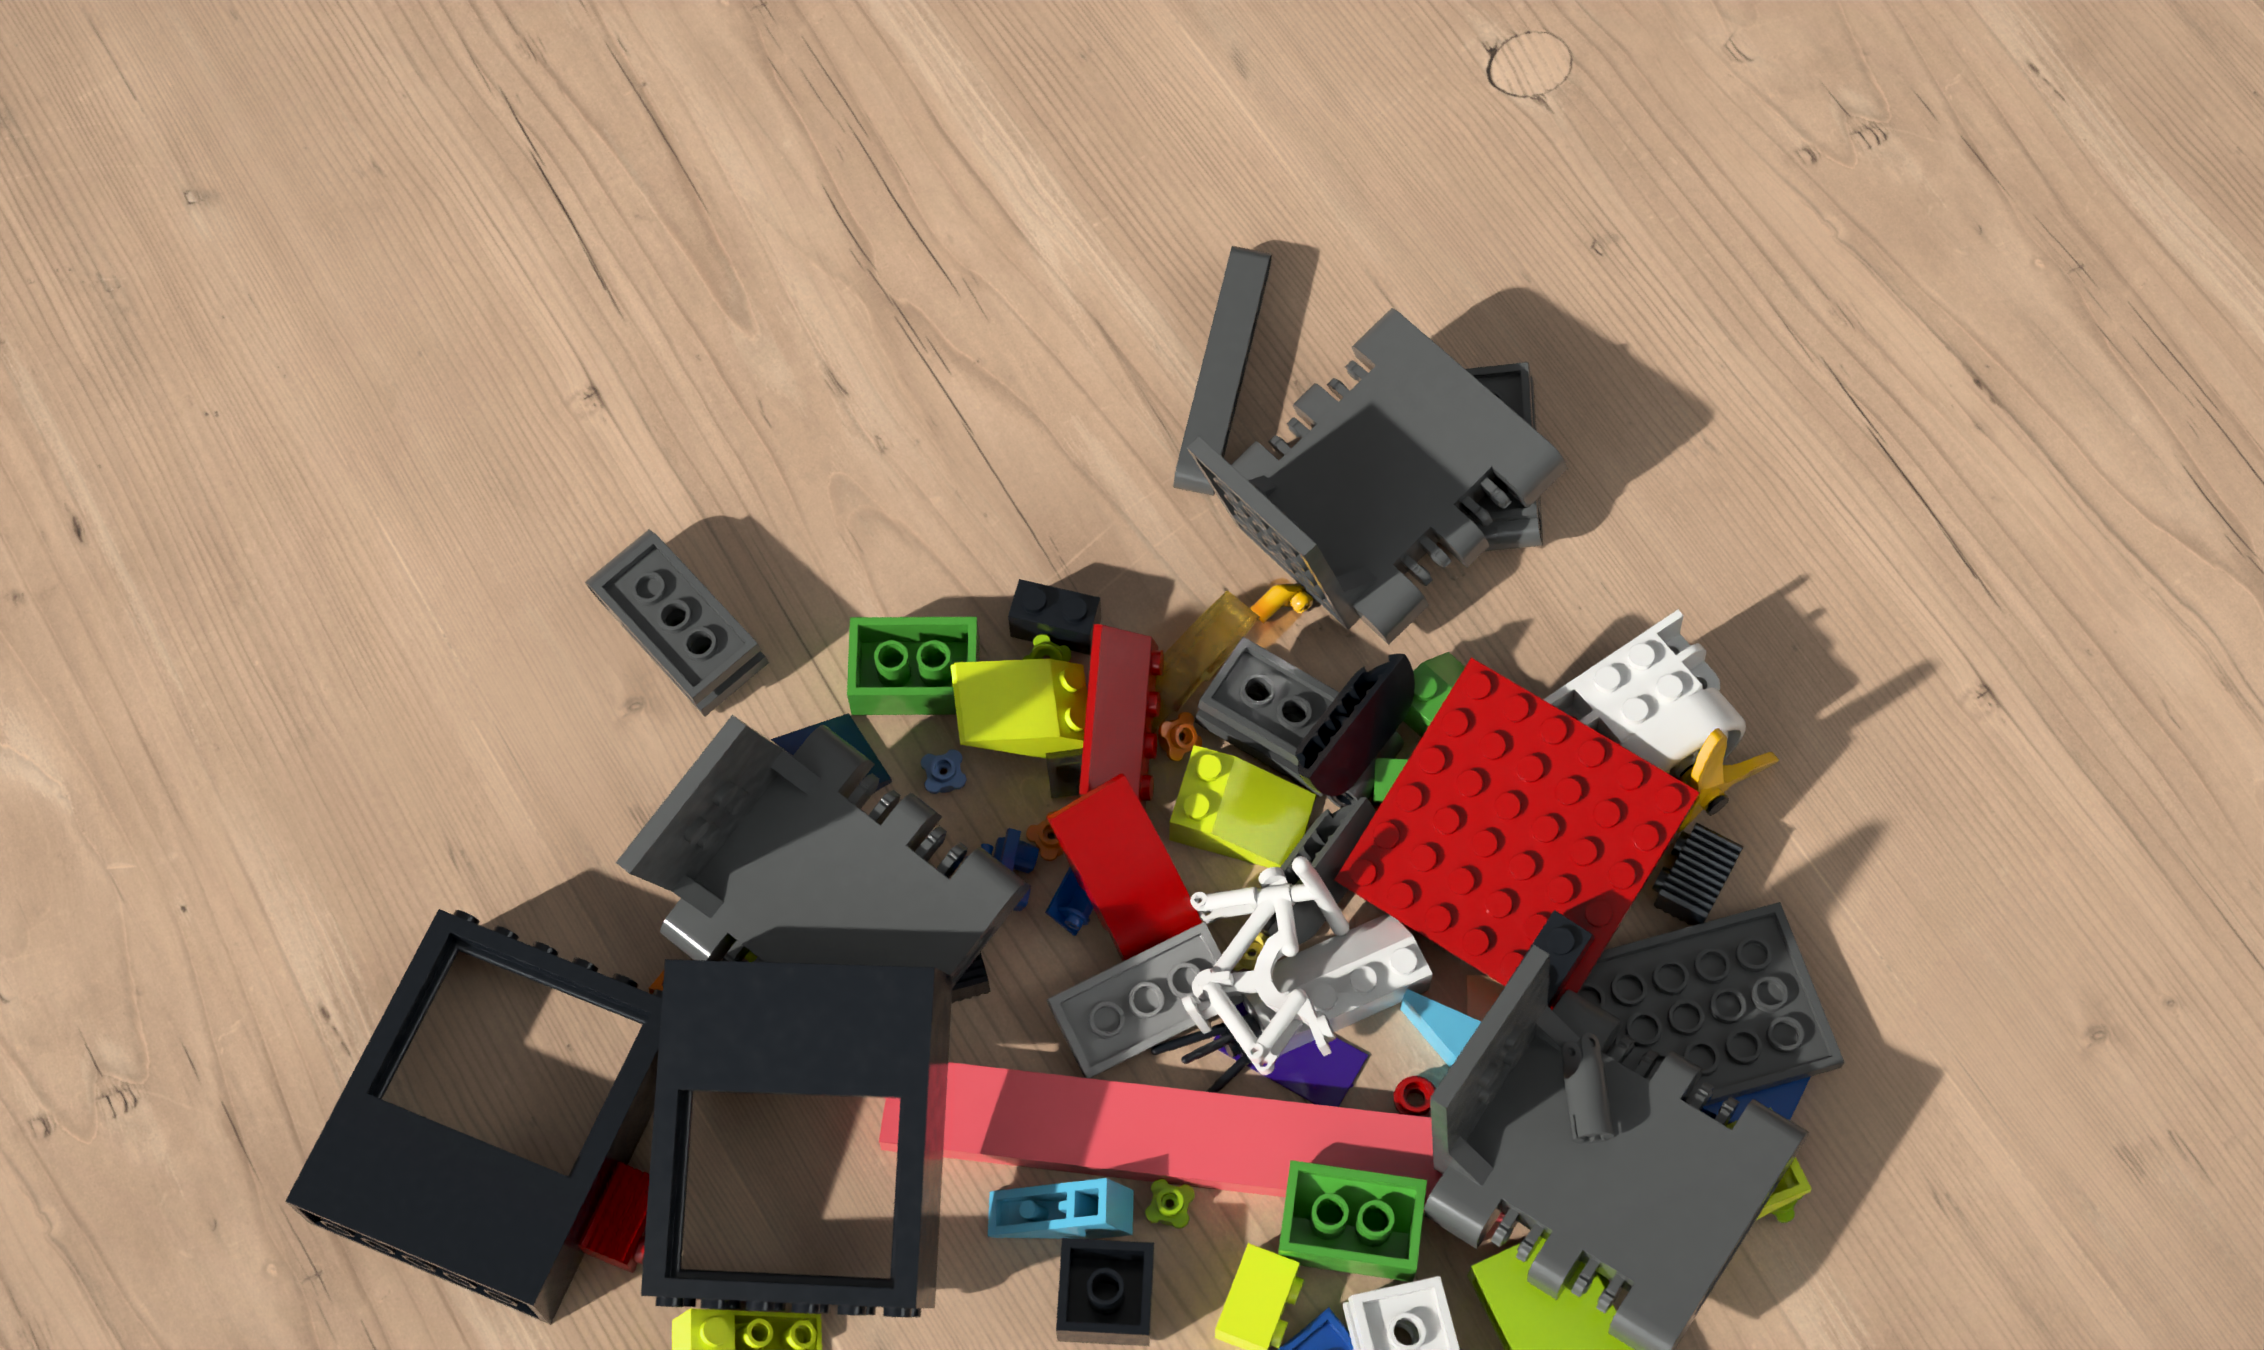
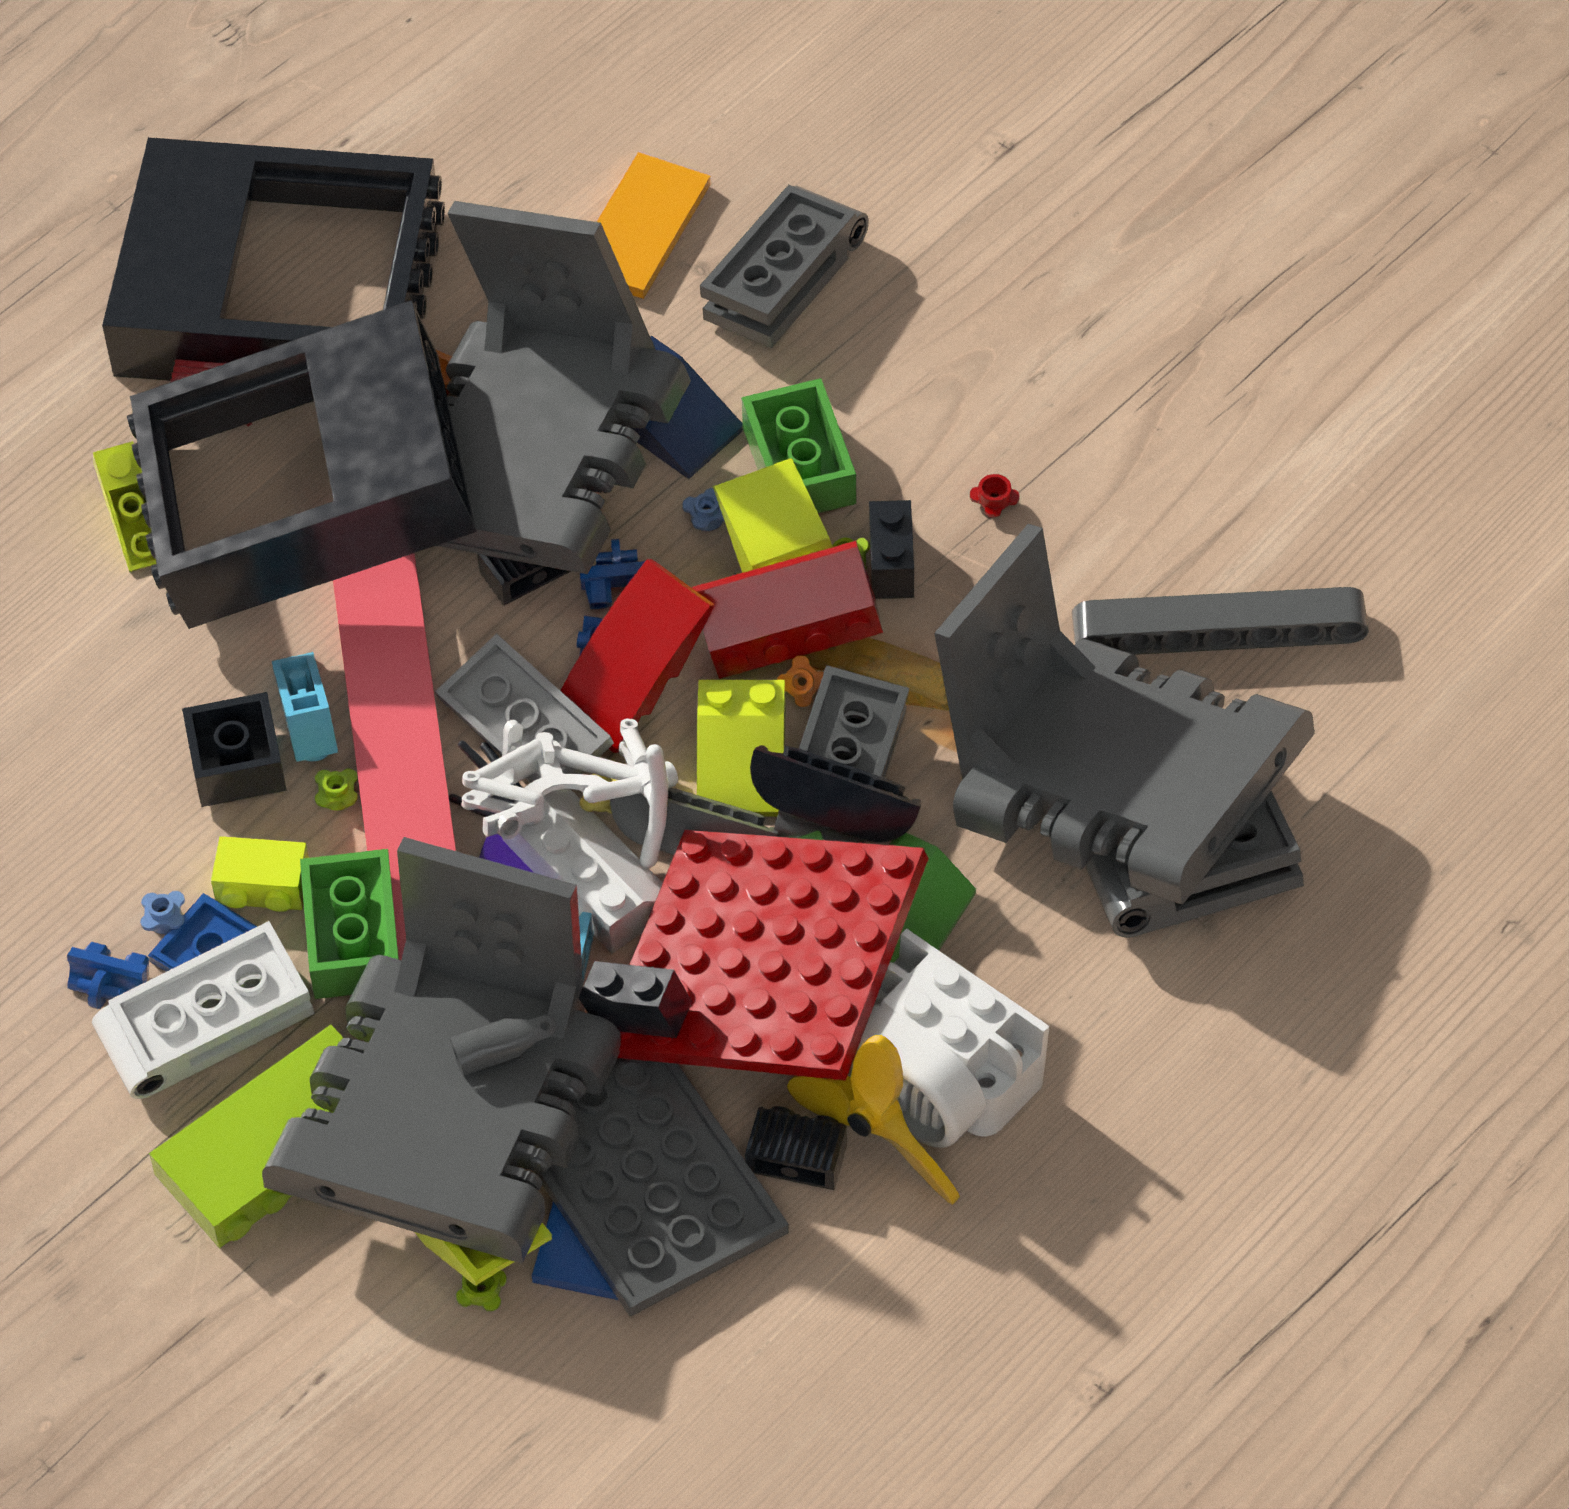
camera: 75 degrees right, 10 degrees down
(561, 745) = (650, 216): none -> light orange tile
(1013, 504) = (994, 486): none -> red plate

